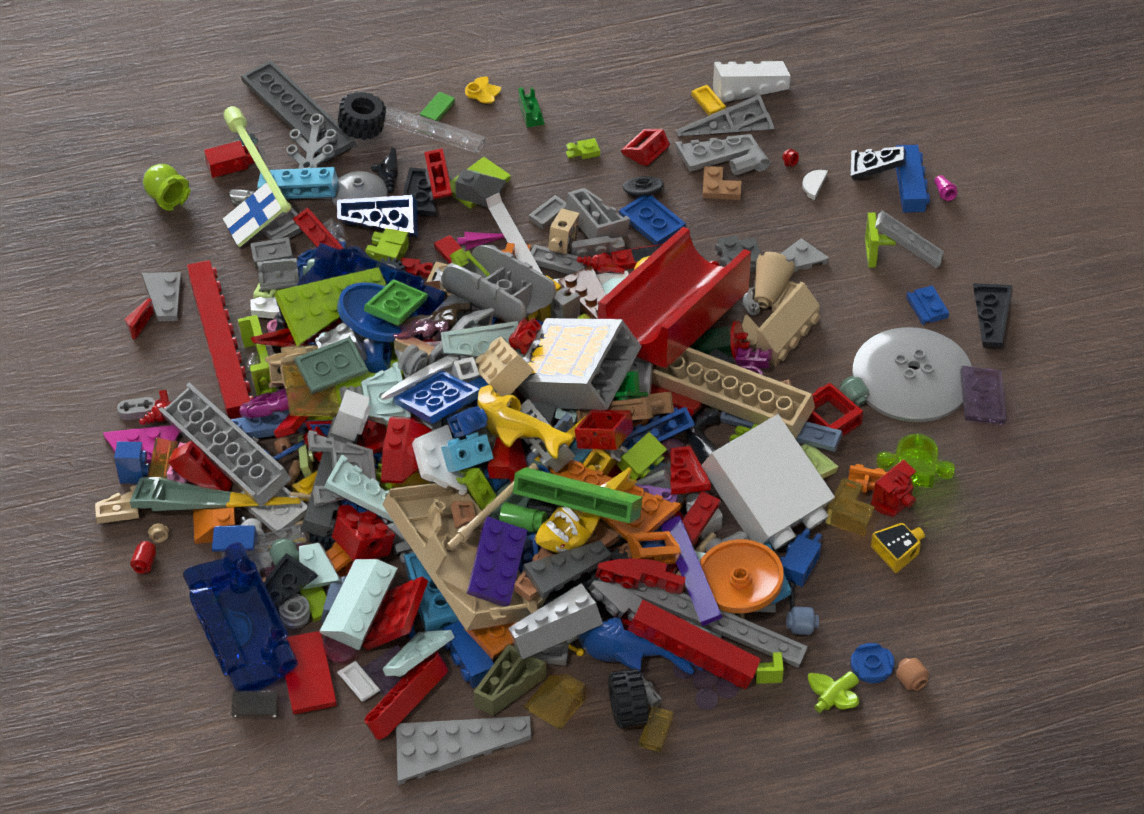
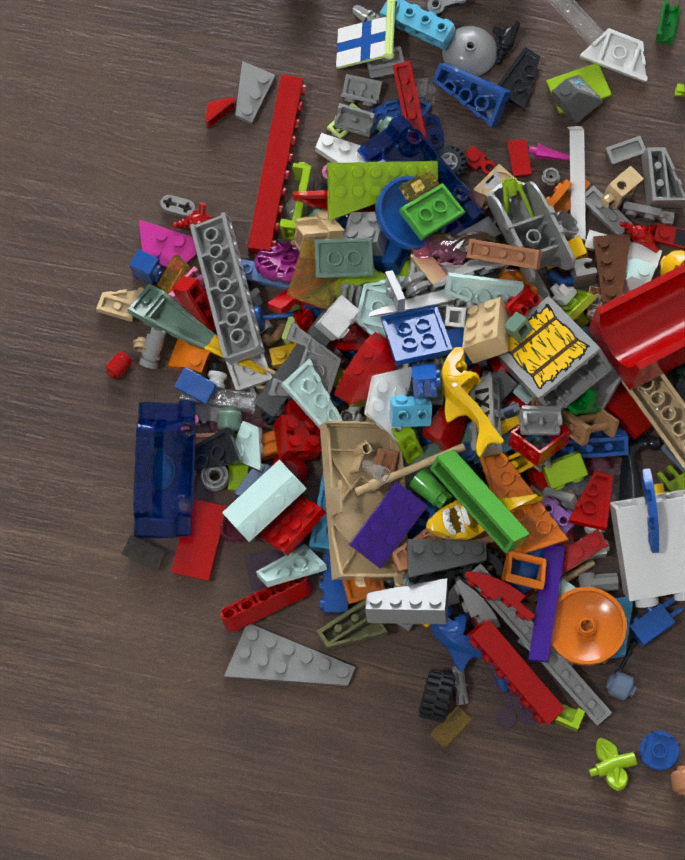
camera: 30 degrees right, 25 degrees up
(173, 526) = (153, 343): none -> light grey axle
(359, 681) = (236, 567): white tile -> none
(371, 286) = (418, 185): none -> clear yellow tile
(389, 244) = (466, 131): lime hips -> none
(396, 369) = (394, 291): none -> light grey plate
(438, 173) = (545, 70): red slope -> none
(463, 516) = (377, 471): none -> clear pin
(485, 299) = (504, 254): none -> nougat plate
(499, 142) = (618, 54): none -> white wing
(532, 348) = (518, 327): none -> sand green plate
(557, 699) = (383, 661): clear yellow slope -> none
(597, 408) = (540, 420): none -> light grey hinge
(740, 427) = (650, 501): none -> blue tile

